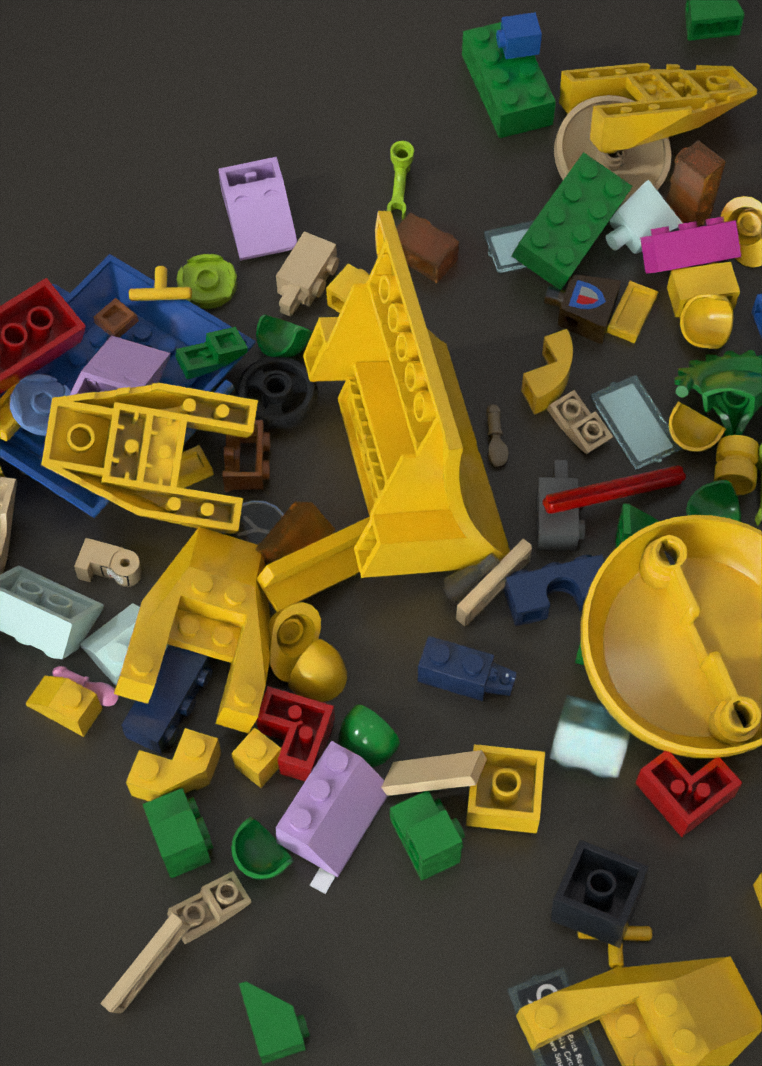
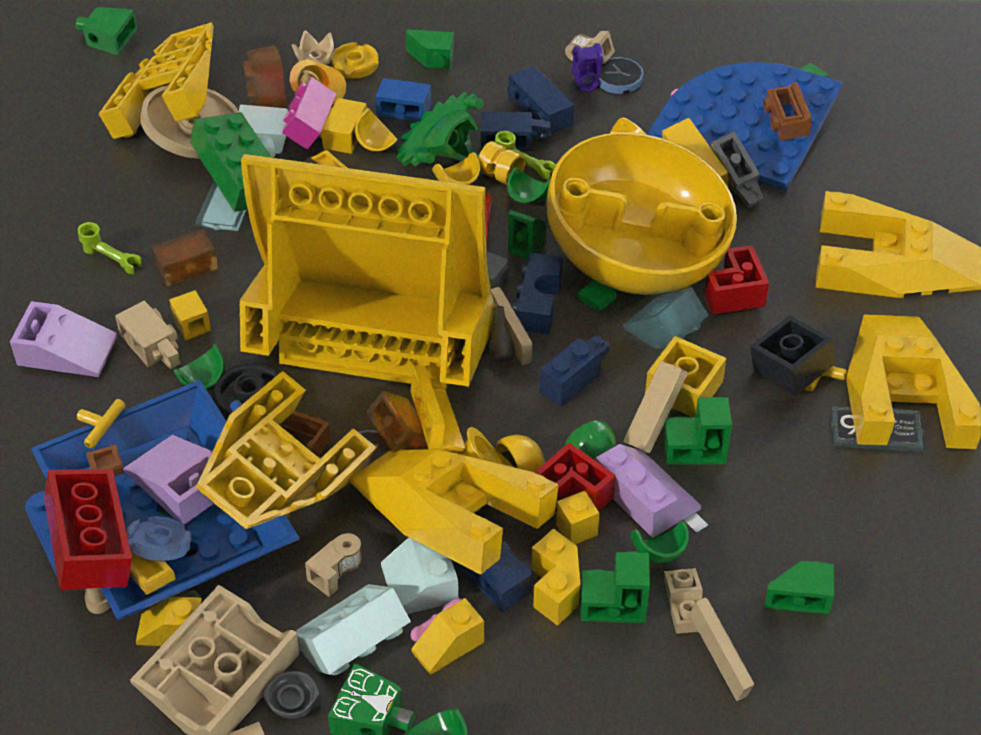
camera: 65 degrees left, 15 degrees down
(210, 278) = (97, 399): lime tile -> none
(218, 351) = (194, 407): green slope -> none
(510, 88) = (68, 151): green brick -> none
(519, 35) = (53, 115): blue brick -> none

